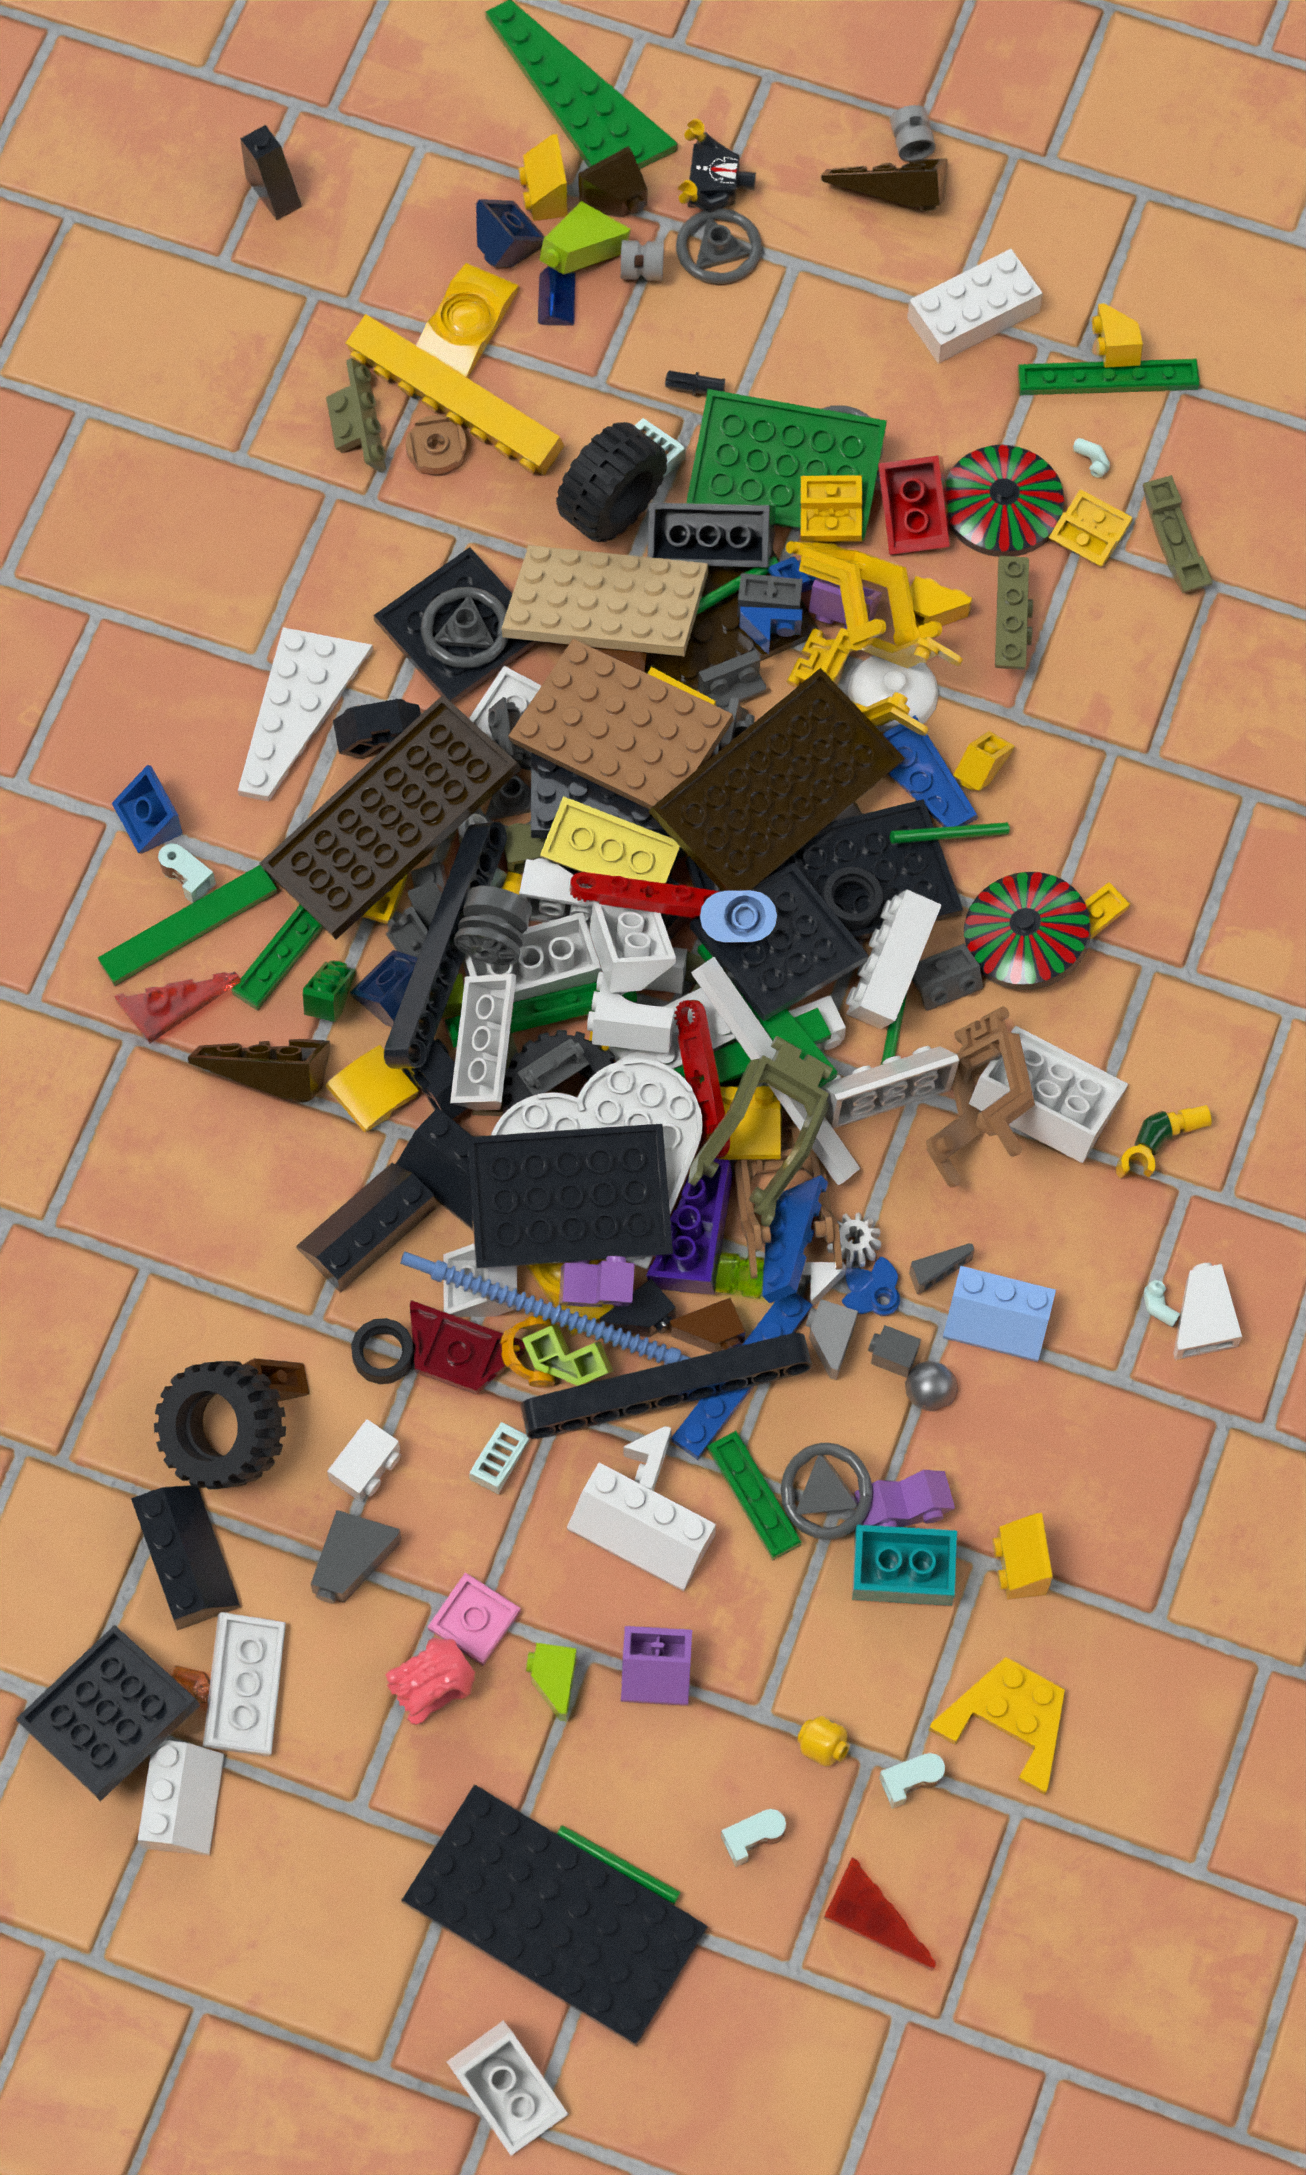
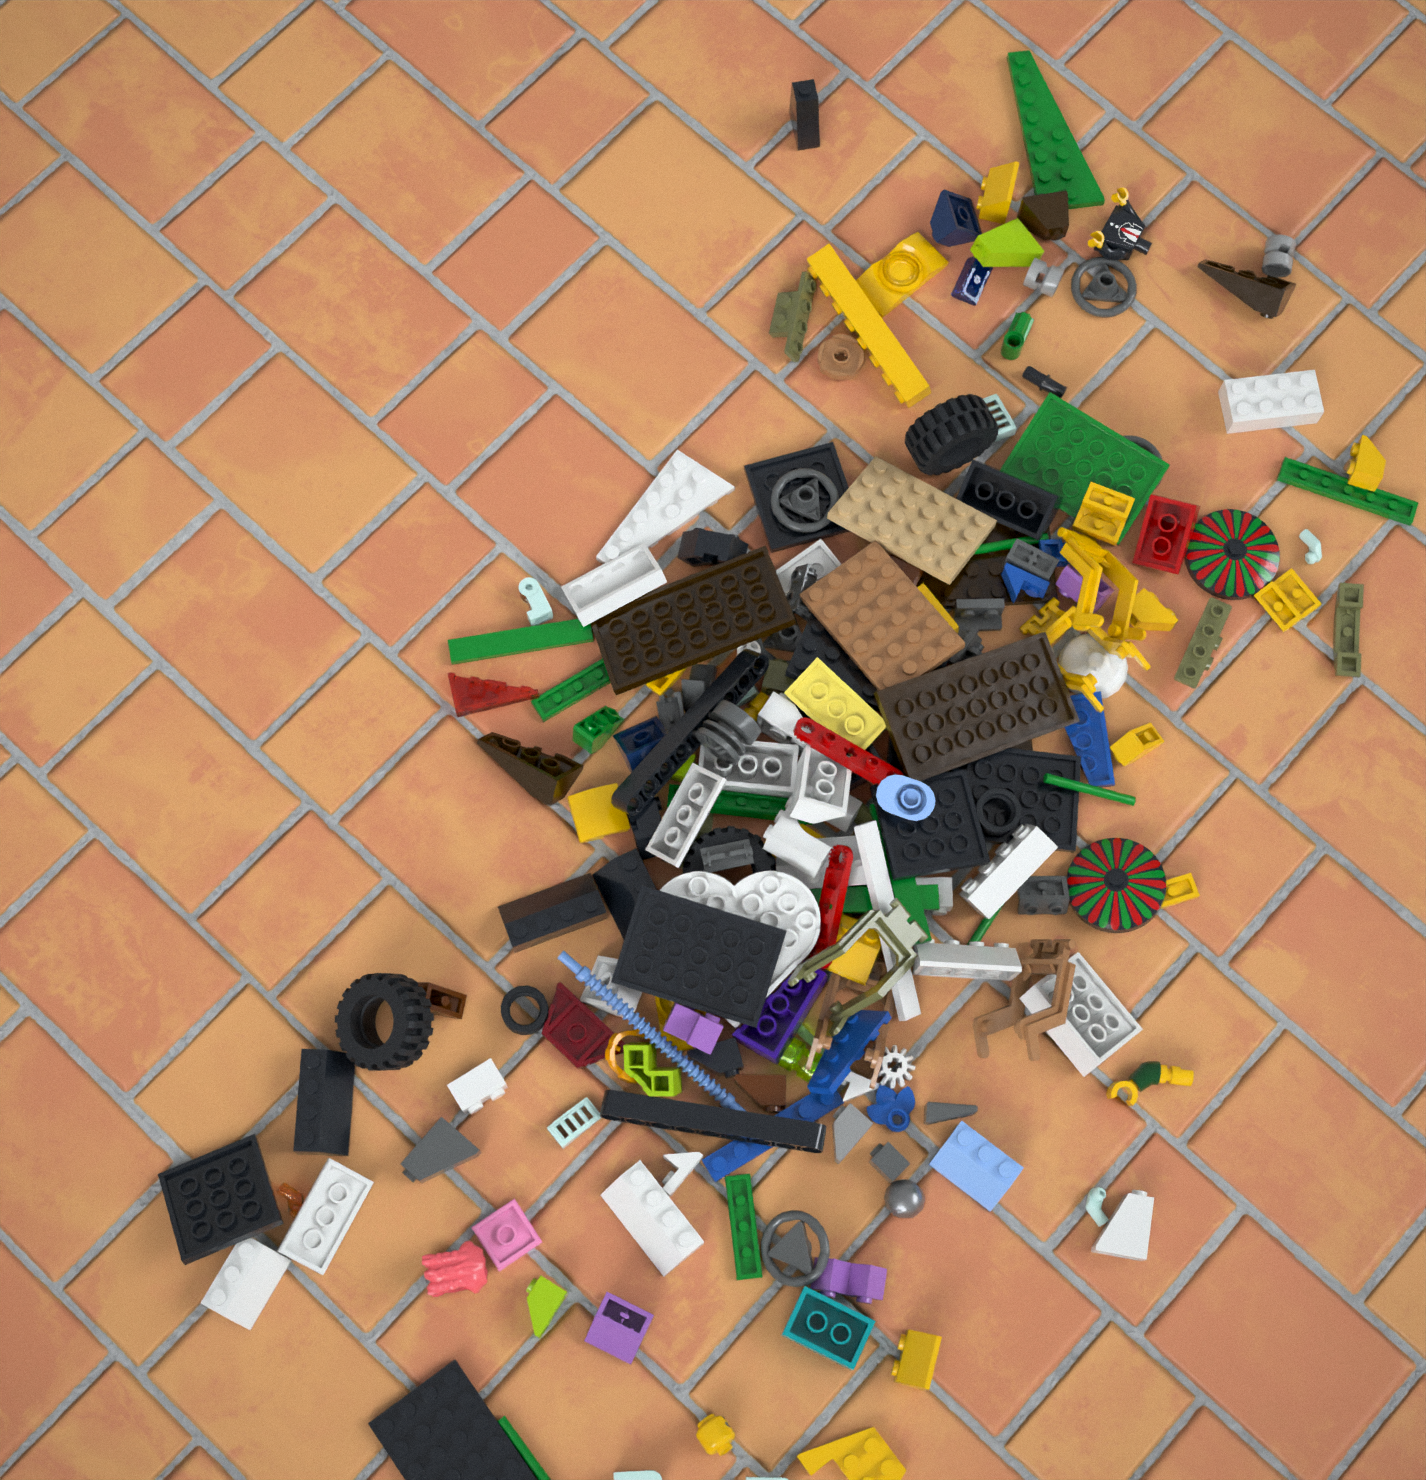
camera: 20 degrees right, 5 degrees up
(147, 812) = (525, 548): blue slope -> none
(275, 813) = (614, 584): none -> white slope
(638, 341) = (1016, 335): none -> green piece

